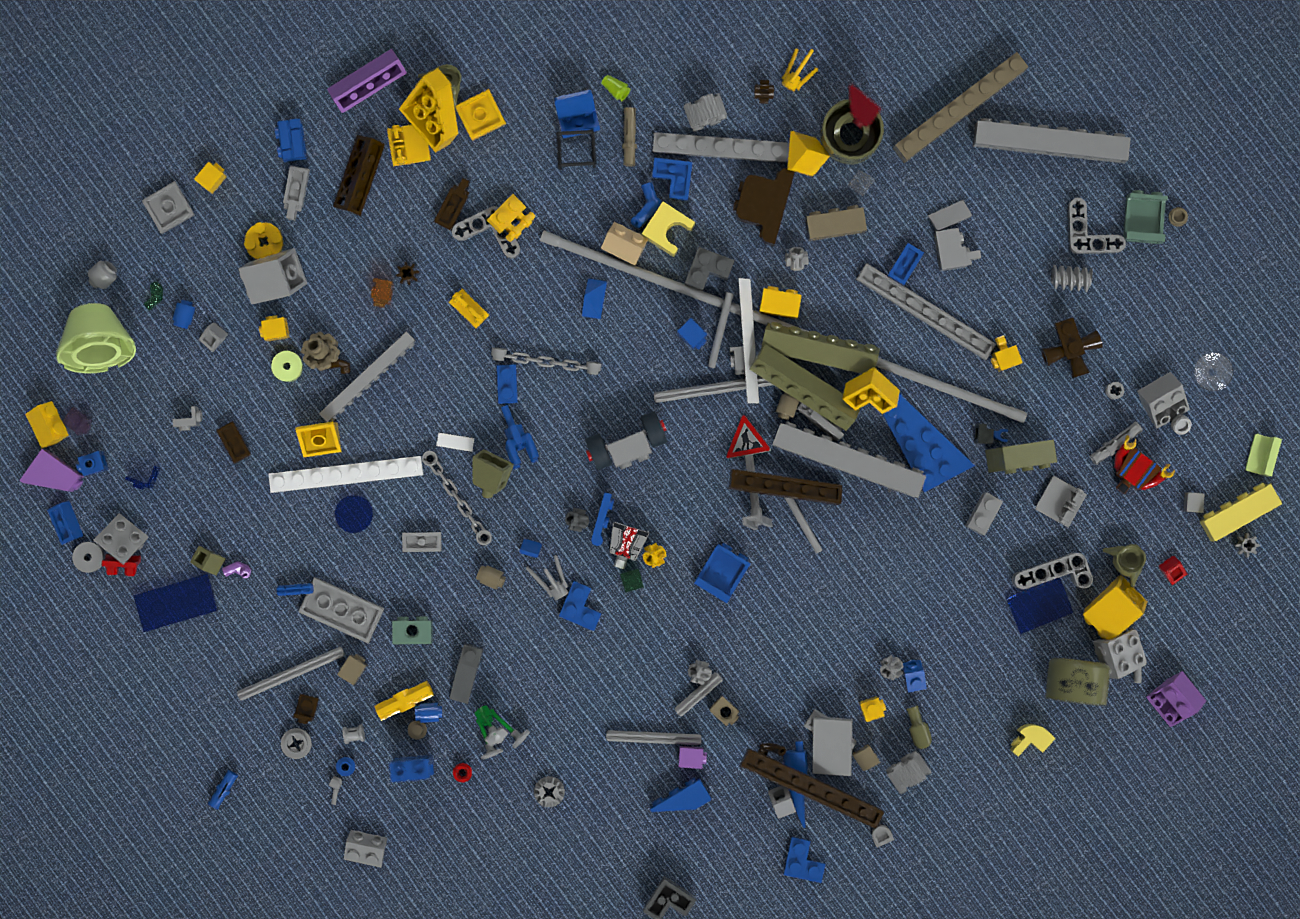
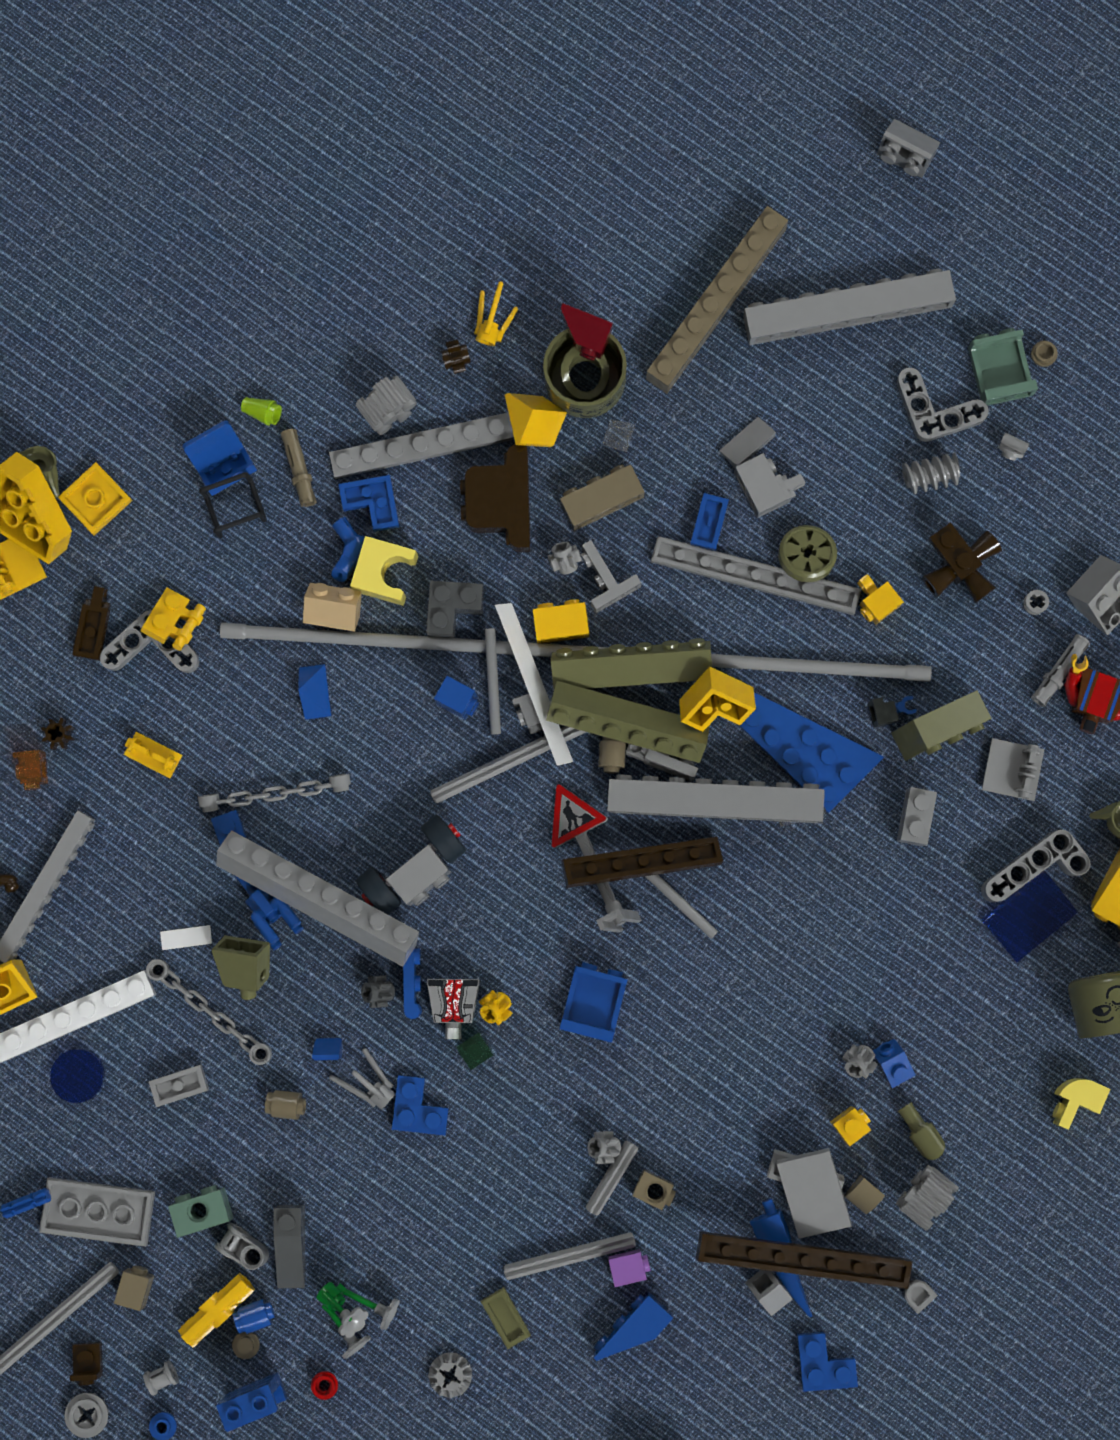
camera: 15 degrees left, 5 degrees down
(433, 663) = (241, 1246): none -> light grey piece
(555, 443) = (317, 898): none -> light grey brick
(598, 765) = (505, 1317): none -> olive tile
(772, 747) = (735, 1220): dark brown arm -> none
(820, 282) = (605, 579): none -> light grey bracket
(972, 317) = (819, 562): none -> olive wheel
(1129, 40) = (907, 148): none -> light grey slope
(1134, 277) = (1012, 447): none -> light grey plate

